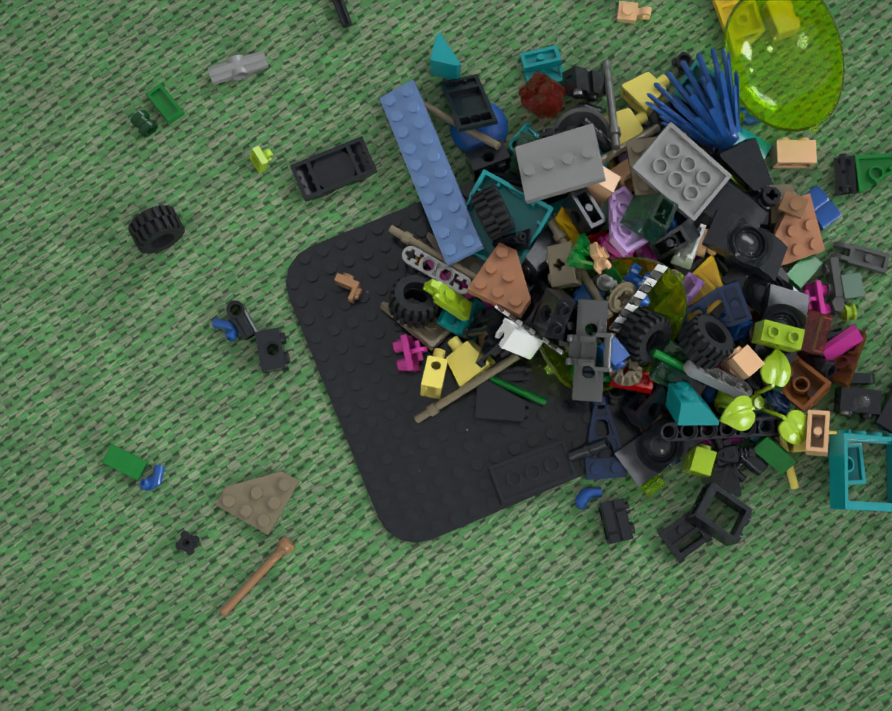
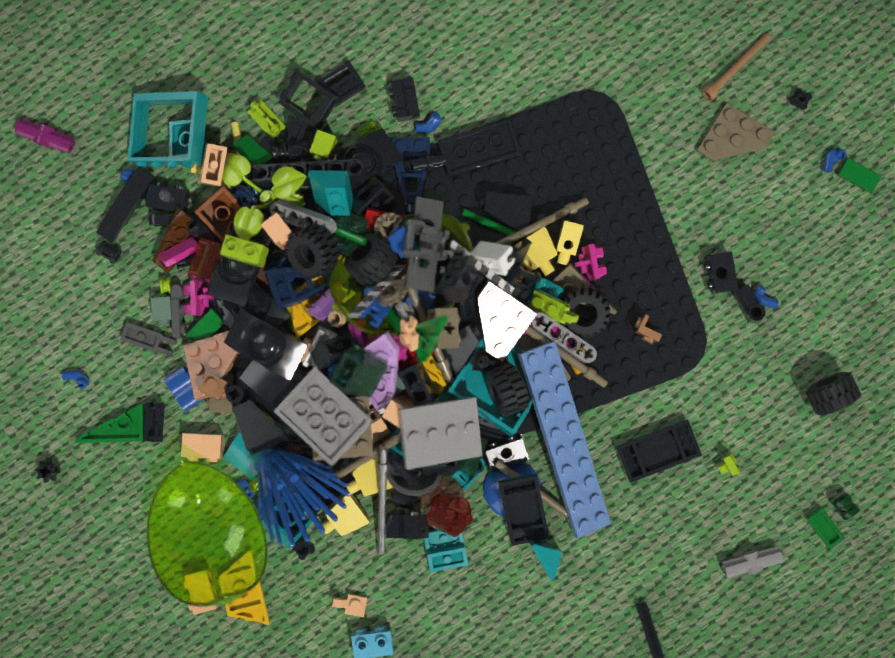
camera: 175 degrees left, 5 degrees up
(761, 494) = (266, 118): none -> lime hinge

